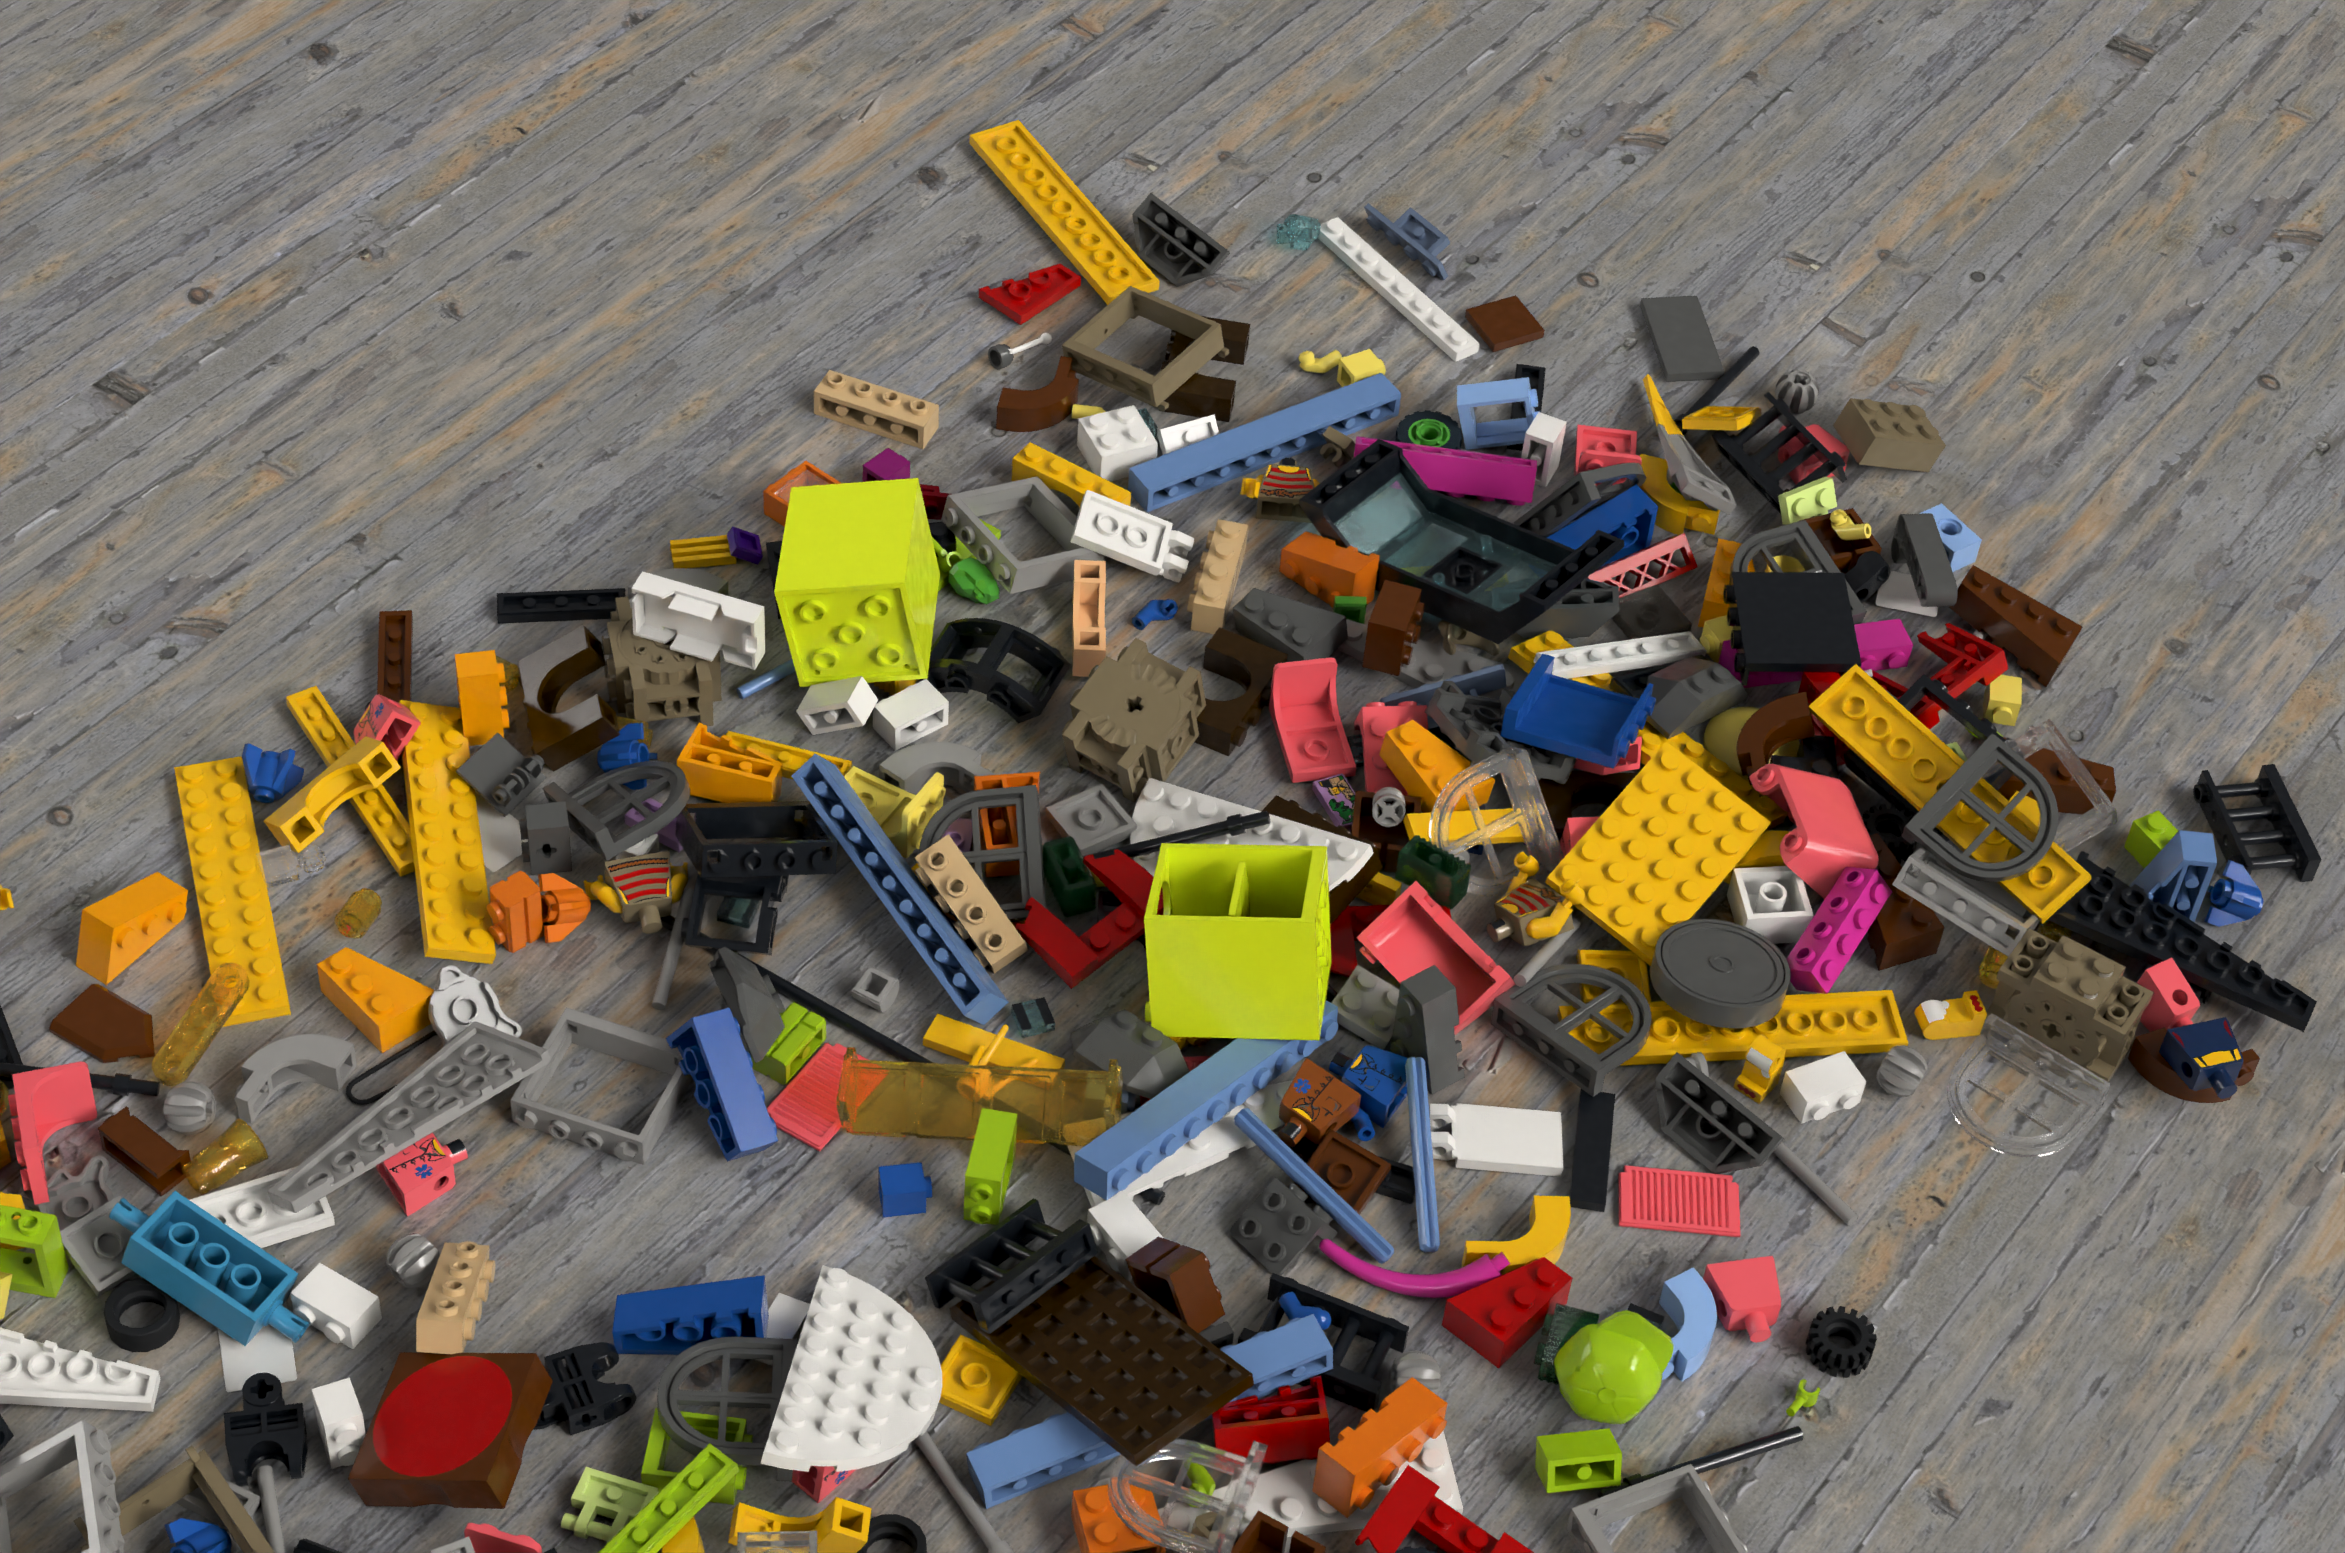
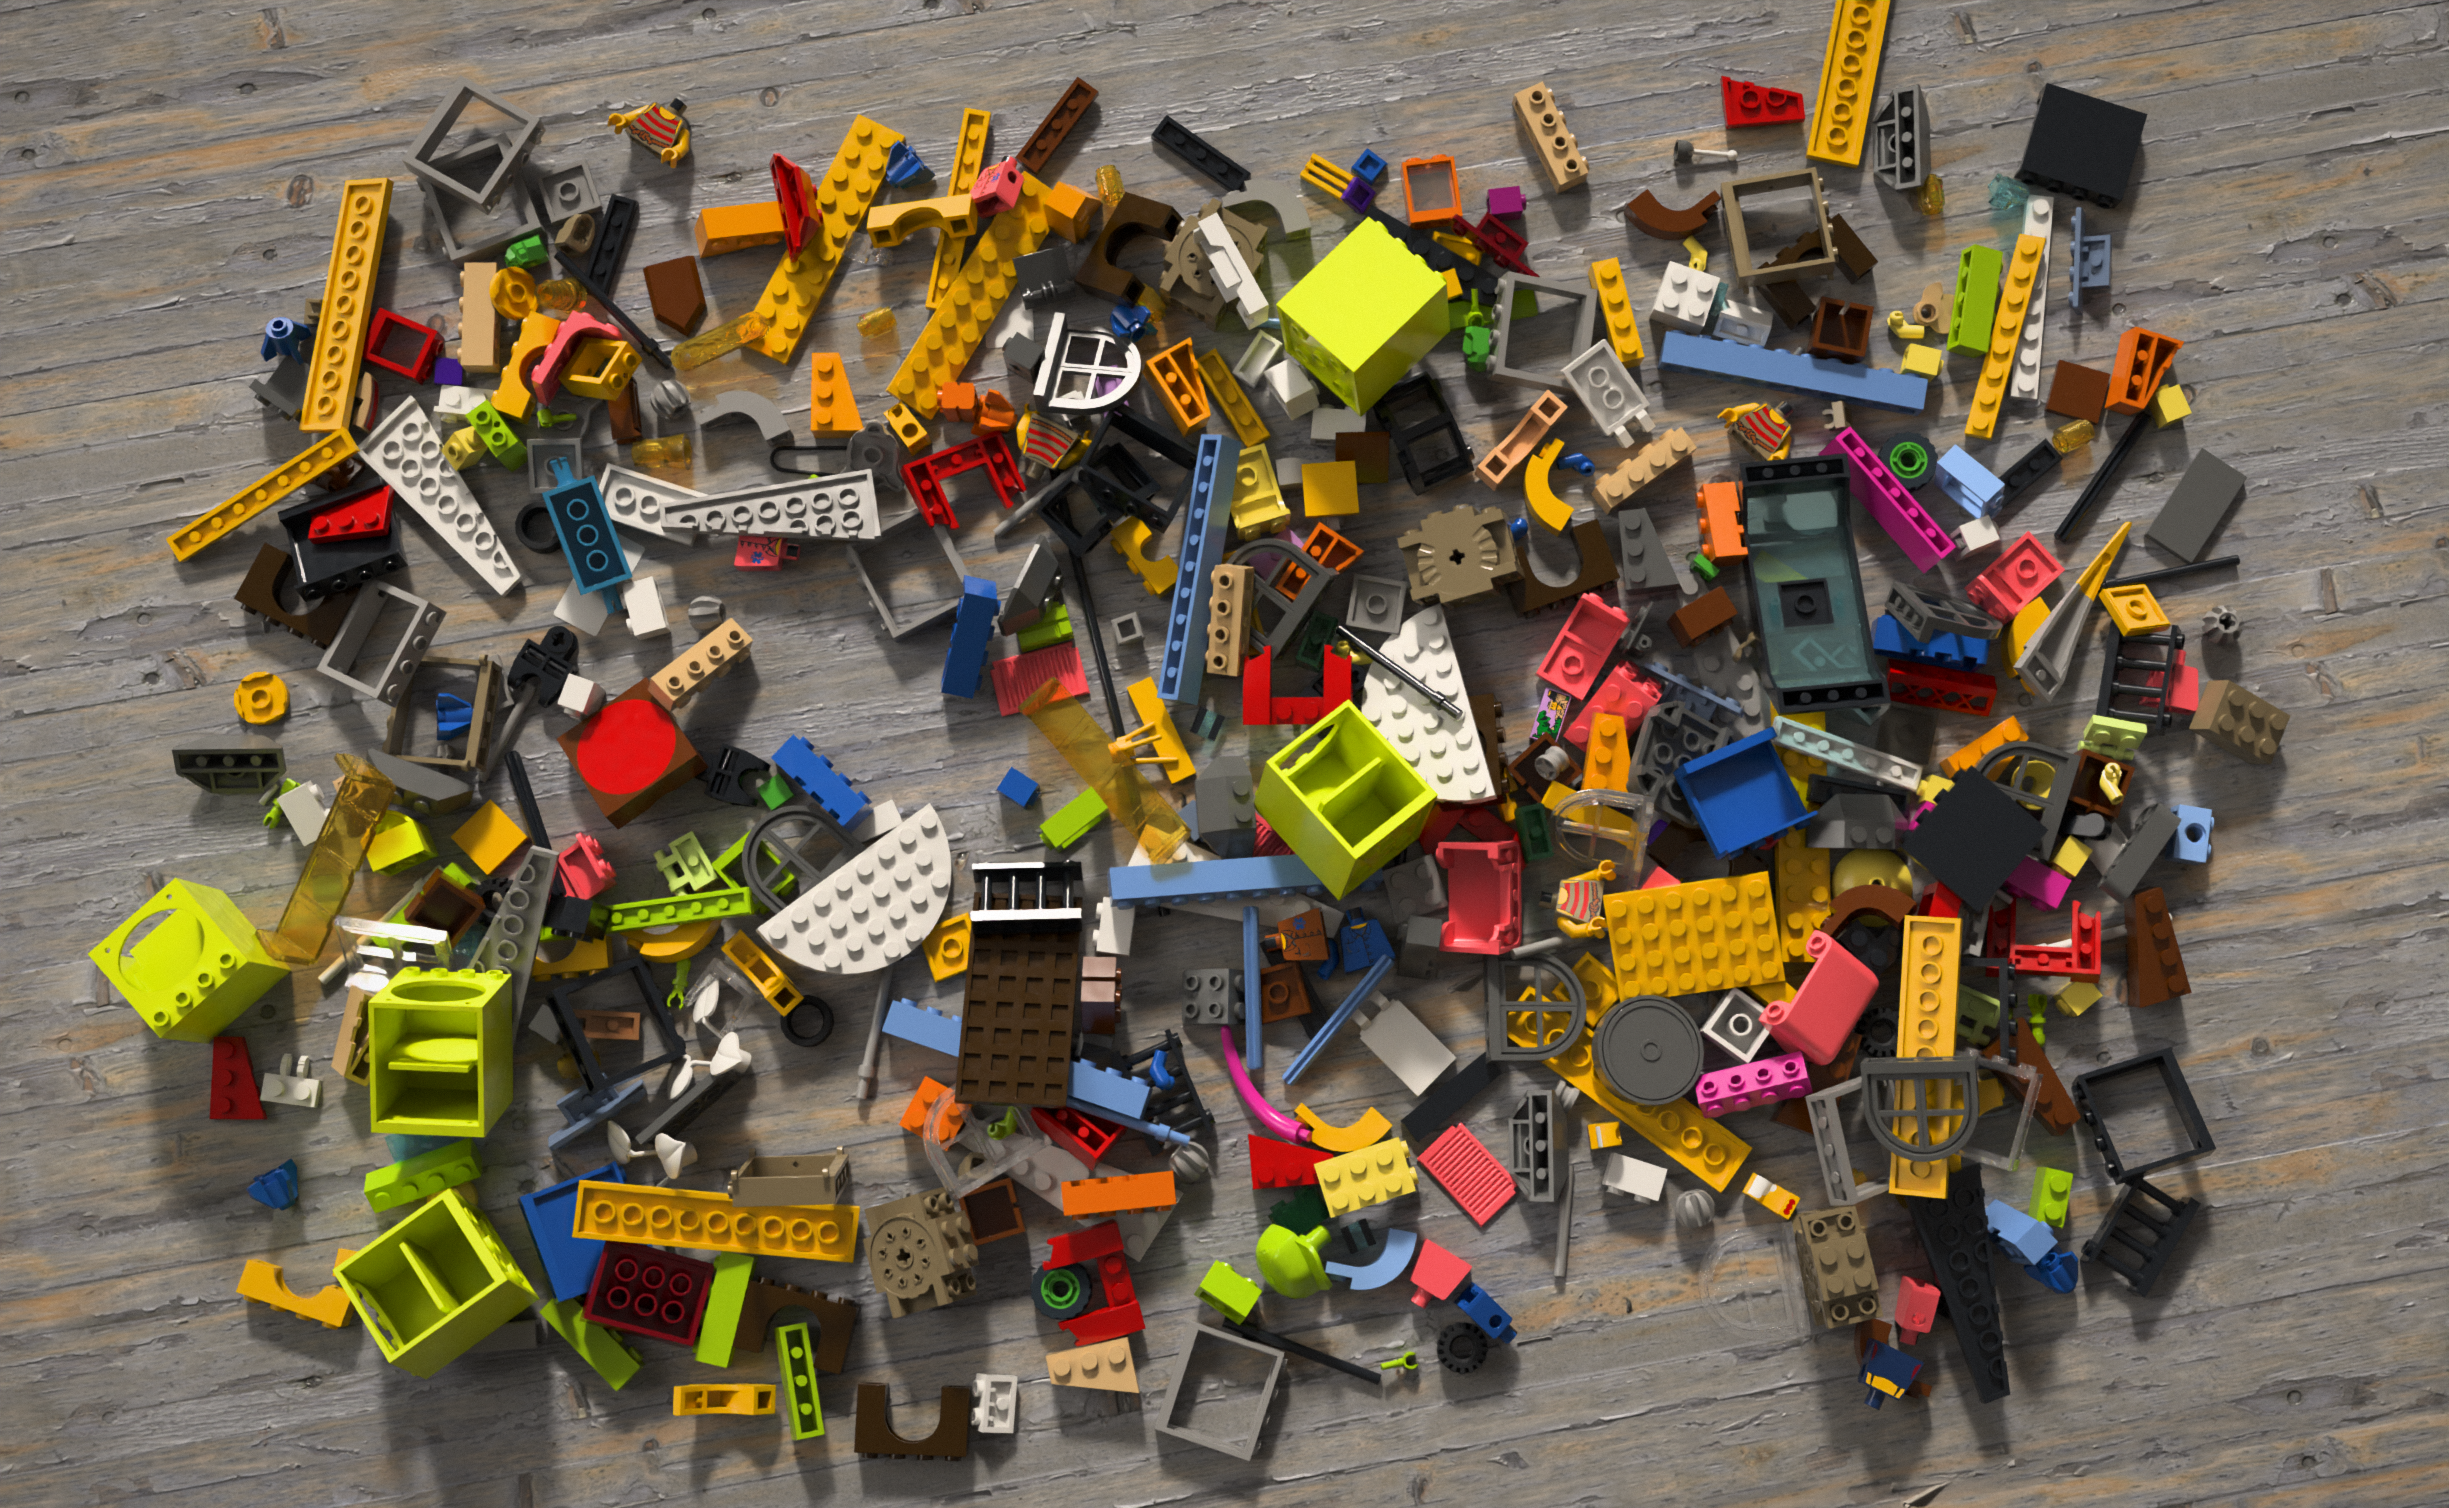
camera: 45 degrees right, 35 degrees up
(64, 1210) = (548, 420): none -> lime hand
(87, 1117) = (586, 360): none -> yellow window
(178, 851) = (796, 204): none -> red wedge
(485, 967) = (907, 428): none -> yellow leg
(544, 981) = (988, 451): none -> red wedge
(644, 1374) = (775, 792): none -> bright green tile
(731, 518) = (1369, 167): none -> blue tile
(776, 716) = (1257, 359): none -> white tile
(855, 931) = (1130, 538): none -> yellow arch
(956, 750) = (1330, 489): none -> yellow tile
(958, 713) = (1368, 450): none -> reddish brown tile
(1125, 627) = (1540, 501): none -> yellow arch
(1241, 268) = (1931, 195): none -> clear yellow brick
(1279, 383) = (1837, 334): none -> reddish brown piece
(1322, 172) = (2081, 146): none -> black panel
(1332, 336) = (1938, 306): none -> tan plate
(1353, 685) = (1635, 643): none -> dark grey hinge
(1356, 309) = (1974, 301): none -> lime brick
(1362, 1359) = (1160, 1132): none -> medium blue bar
(1406, 316) = (2005, 337): none -> yellow plate
(1533, 274) = (2138, 368): none -> orange wedge
(1535, 347) = (2073, 435): none -> clear yellow brick
(1583, 286) = (2168, 405): none -> light yellow brick
(1590, 362) = (2103, 477): none -> black axle
(1597, 1243) = (1366, 1176): none -> light yellow bracket
(1826, 1282) = (1481, 1308): none -> blue torso
(1879, 604) = (2069, 856): none -> light yellow brick
(2167, 705) = (2180, 1095): none -> black window

